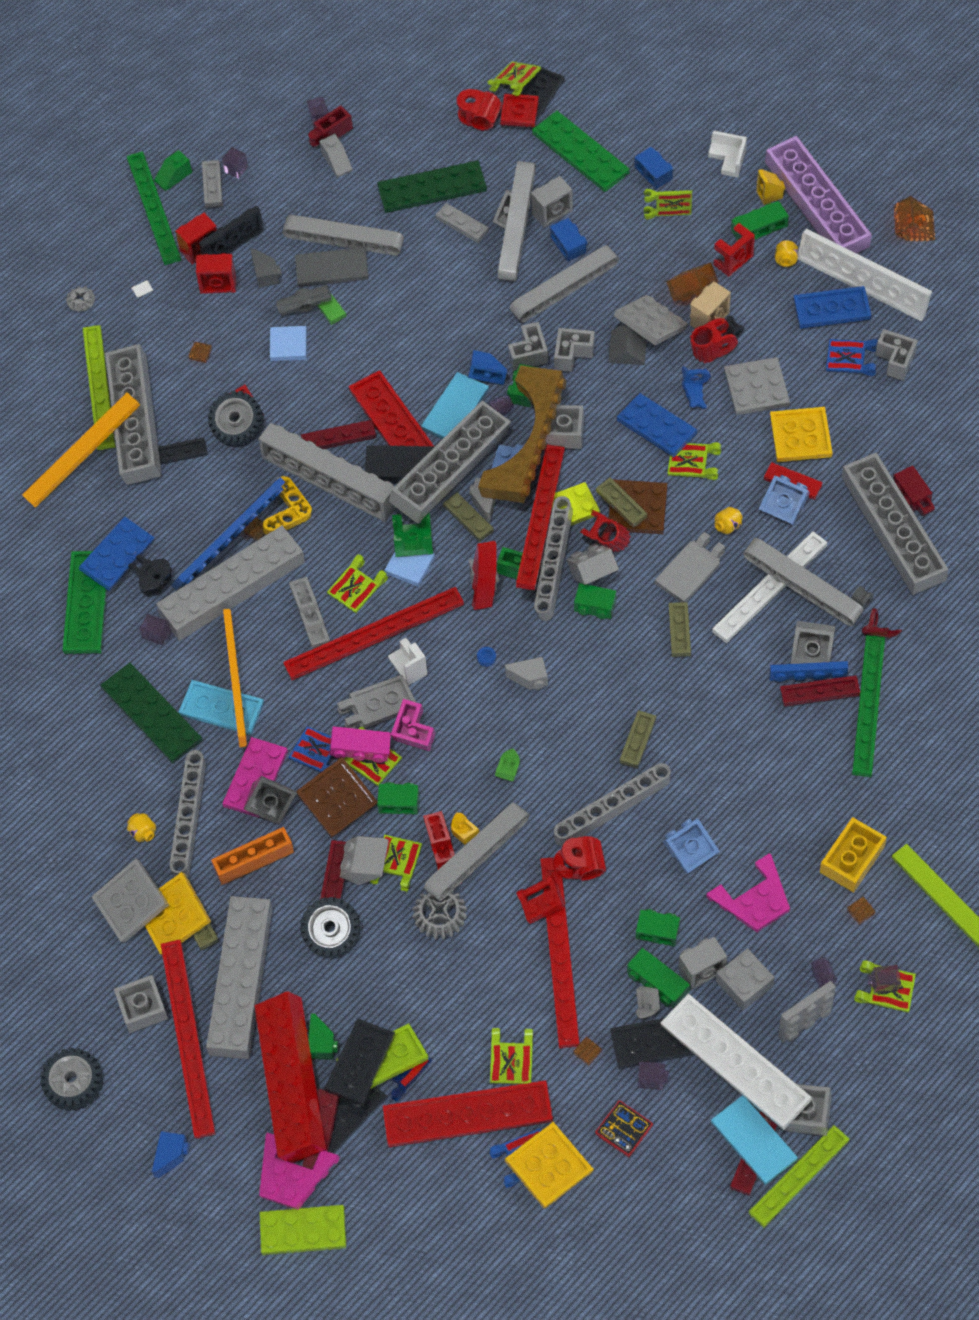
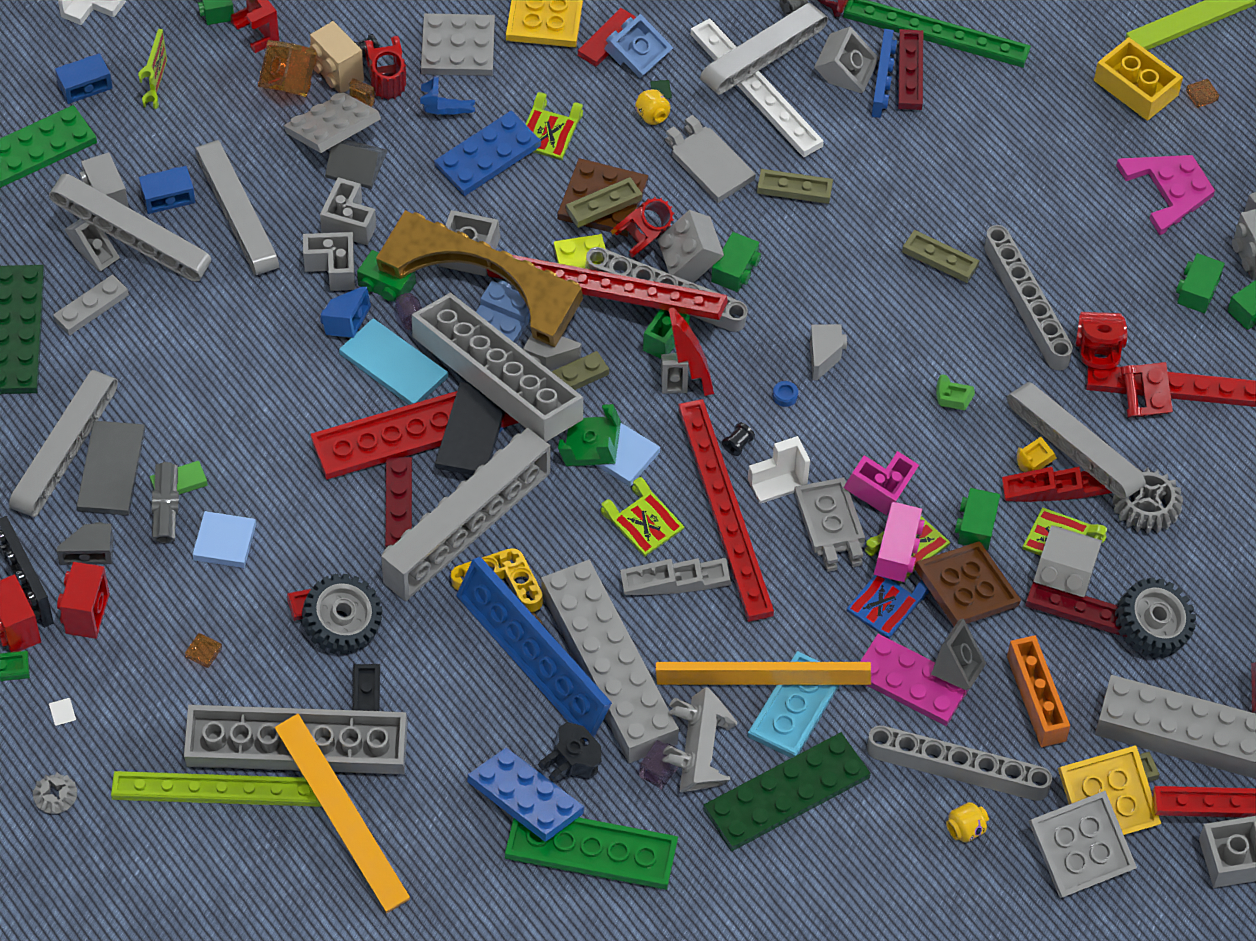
camera: 85 degrees left, 5 degrees down
(188, 644) = (703, 717): none -> light grey hose
(435, 631) = (738, 439): none -> black bush
(687, 333) = (362, 92): none -> clear orange tile
(690, 845) = (1096, 230): medium blue plate -> none
(754, 526) = (662, 86): none -> dark green sticker

